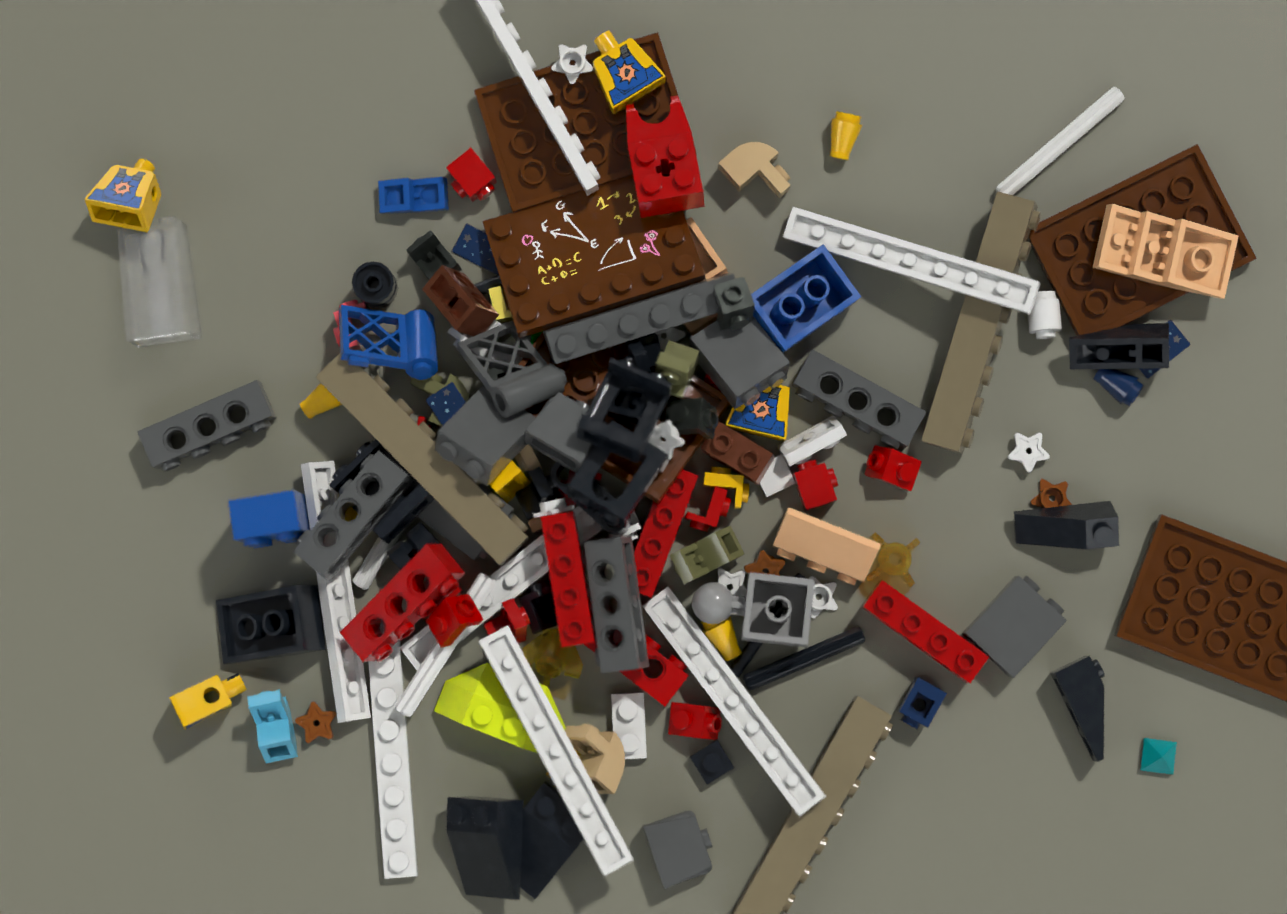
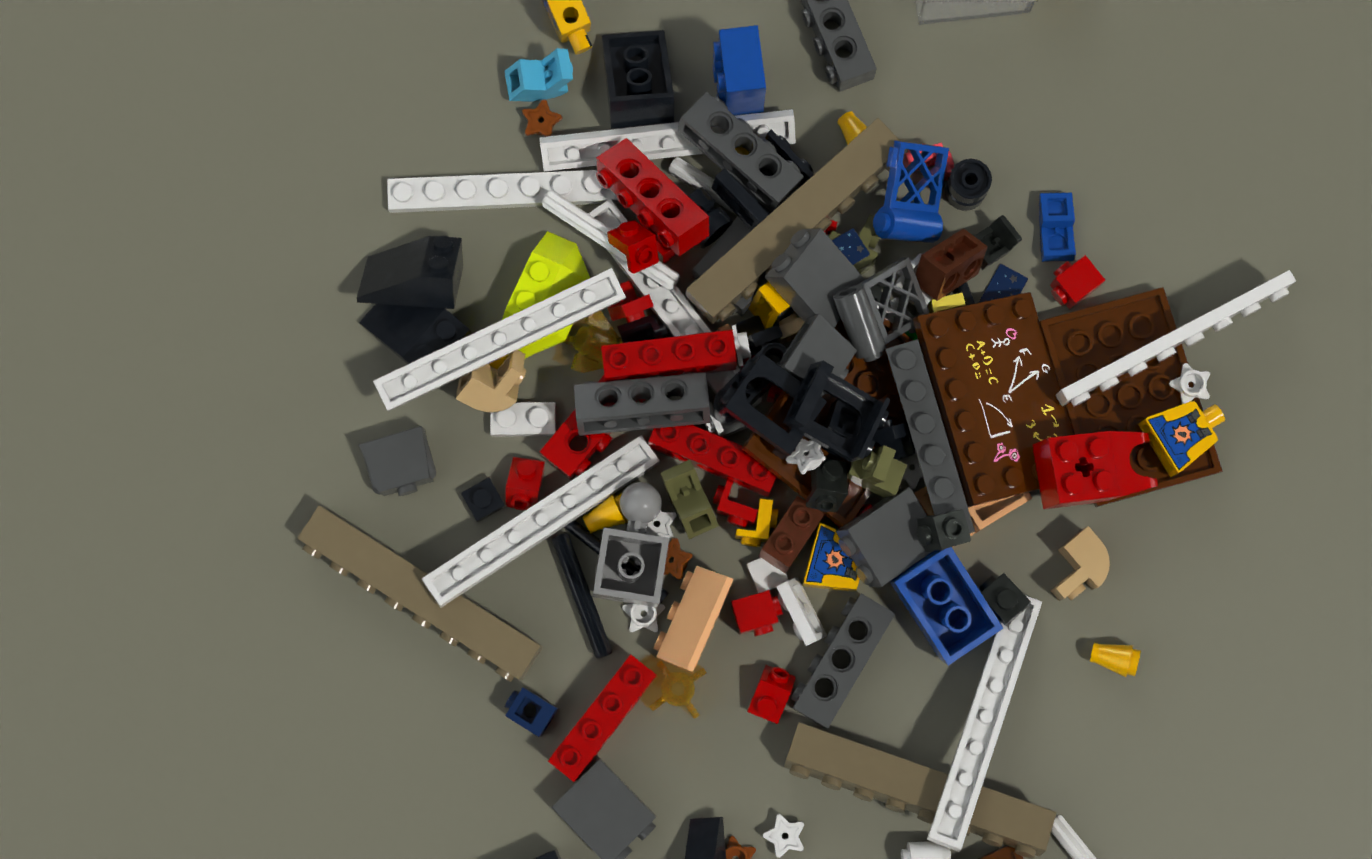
camera: 90 degrees right, 5 degrees down
(791, 244) = (1004, 598): none -> pearl dark grey bracket

